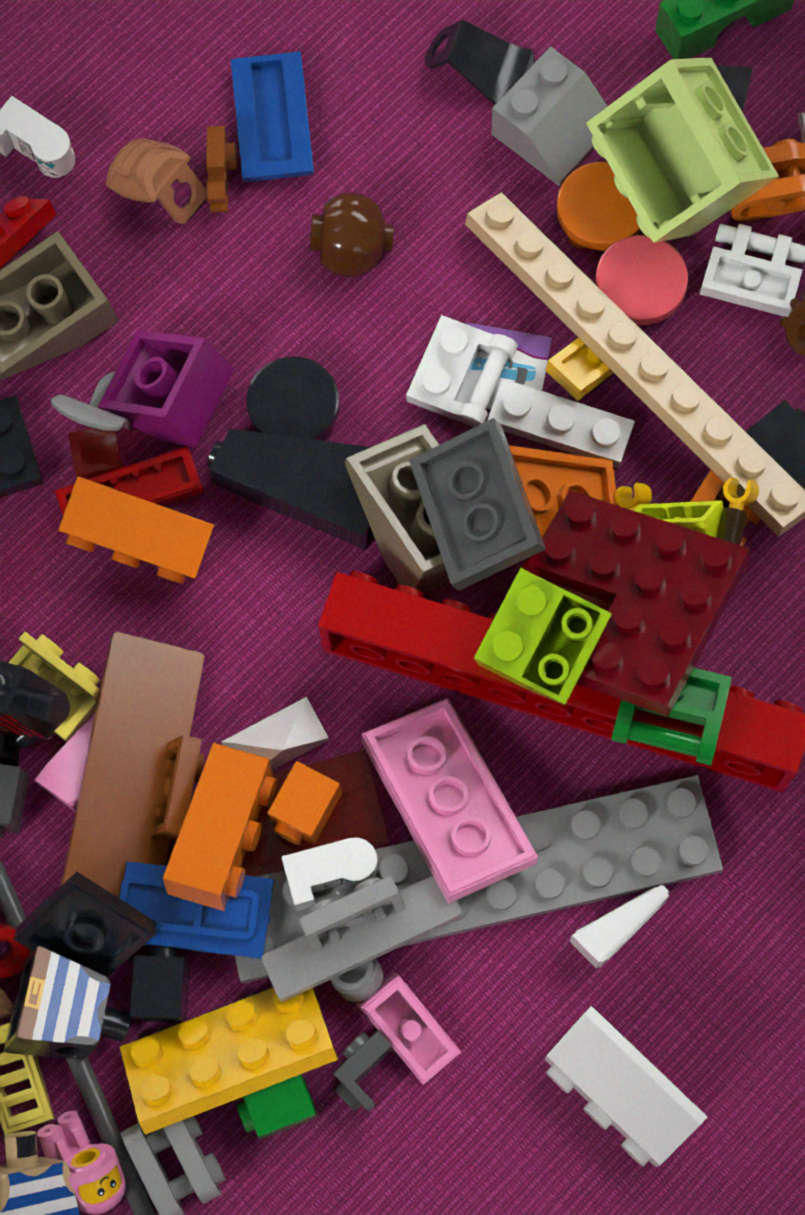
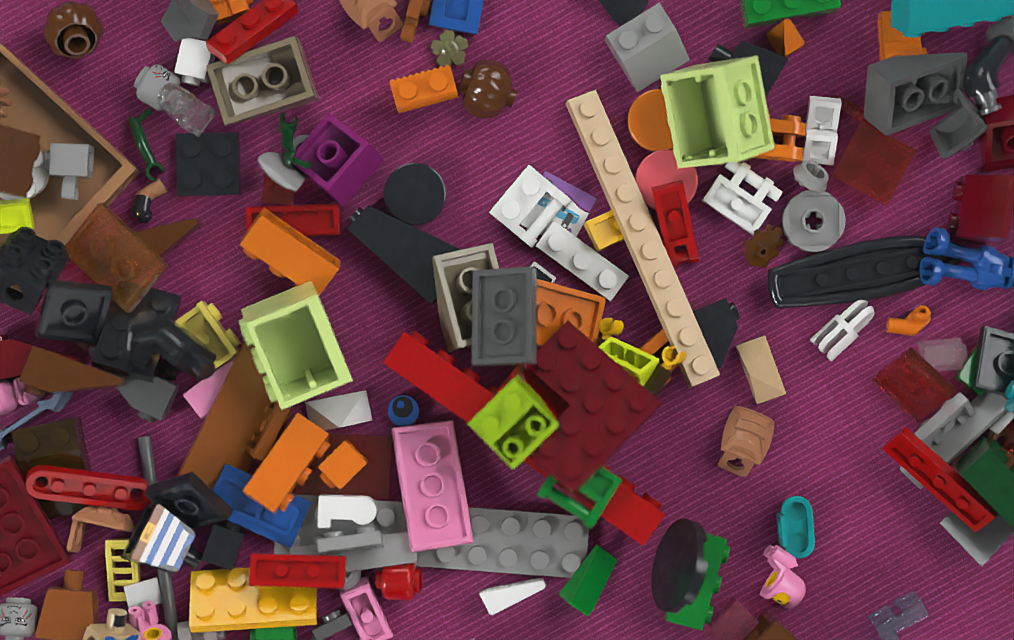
camera: 10 degrees right, 15 degrees up
(54, 1100) = (143, 591): none -> white sticker
(94, 392) = (287, 146): none -> dark green piece
(181, 643) = (294, 345): none -> yellowish green container
(262, 258) = (424, 89): none -> orange brick
(281, 203) = (449, 48): none -> olive plant
(283, 981) = (297, 571): none -> red plate
(370, 707) = (403, 410): none -> blue tile
(444, 958) = (400, 581): none -> red head
(675, 322) = (675, 222): none -> red plate
(730, 870) = (589, 581): none -> green slope
(739, 47) = (785, 38): none -> orange slope

